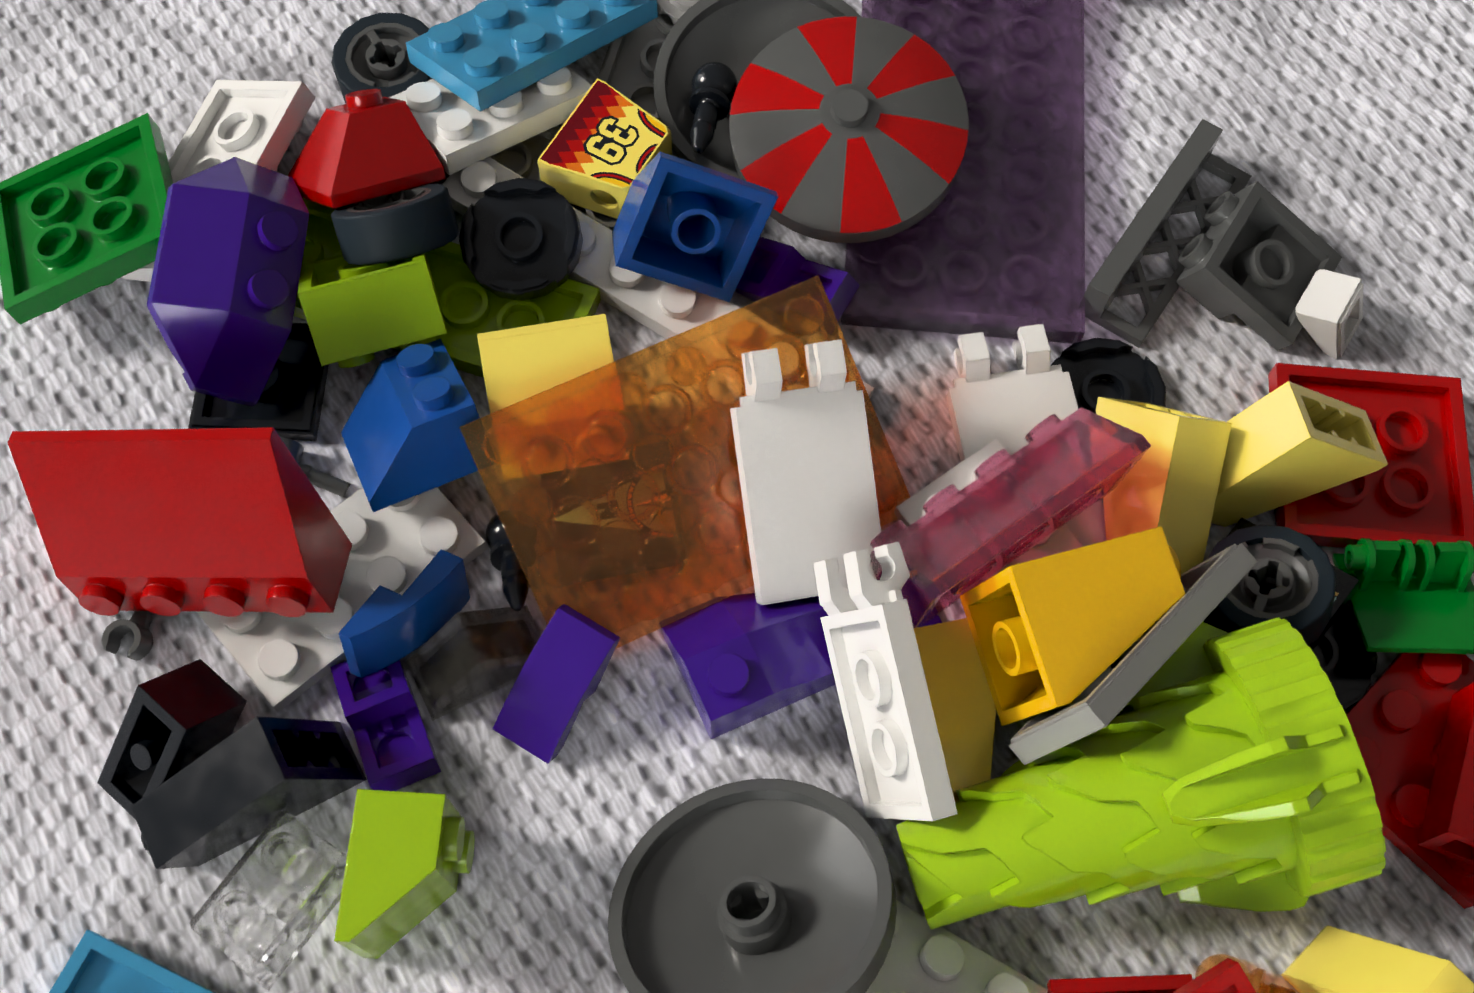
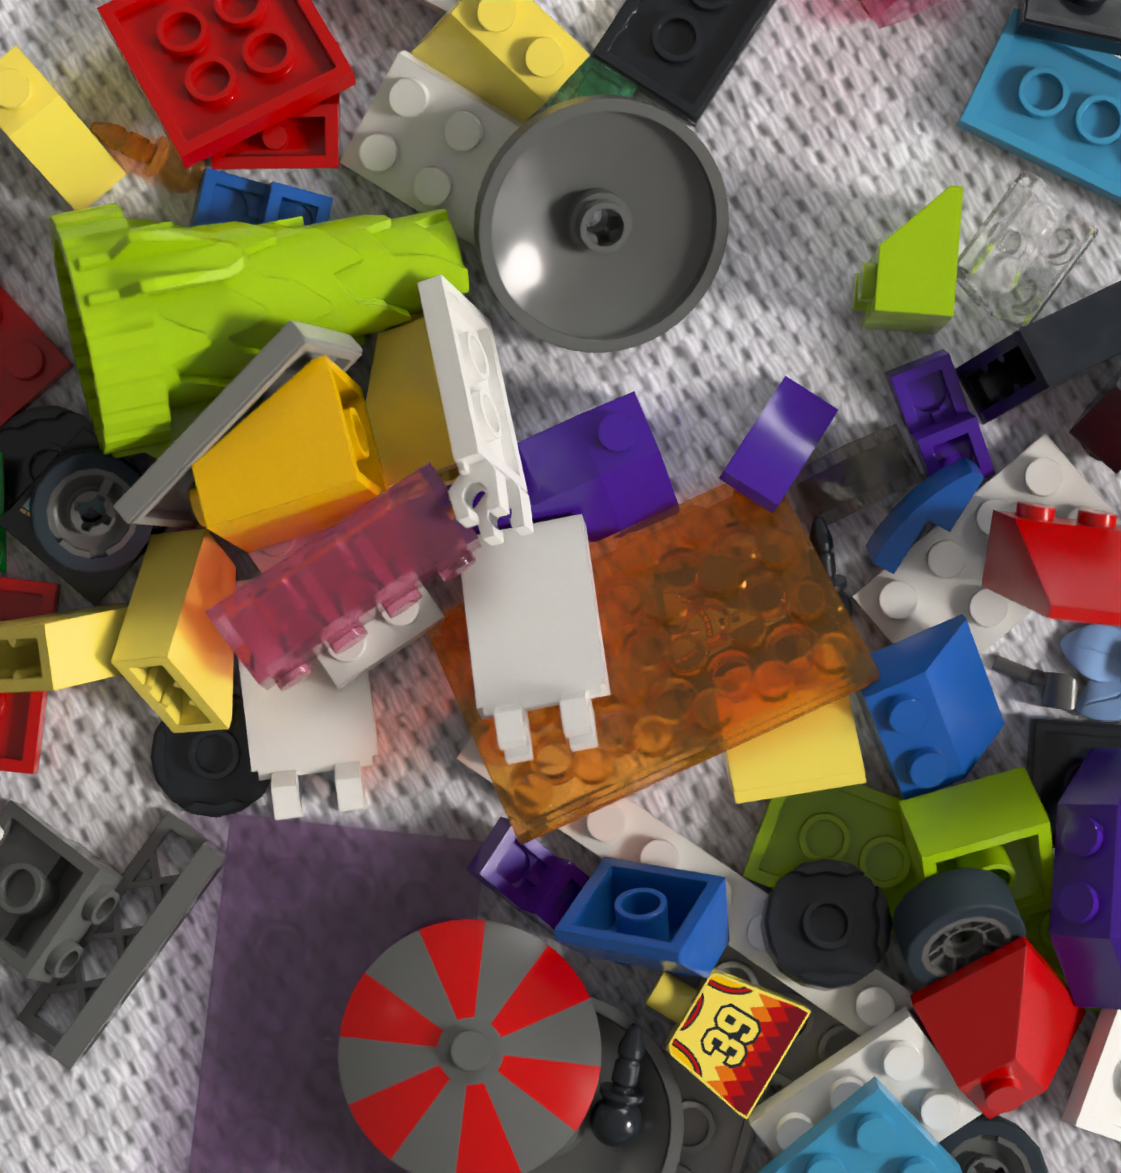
camera: 175 degrees left, 20 degrees up
(1132, 932) = (234, 198): none -> blue slope

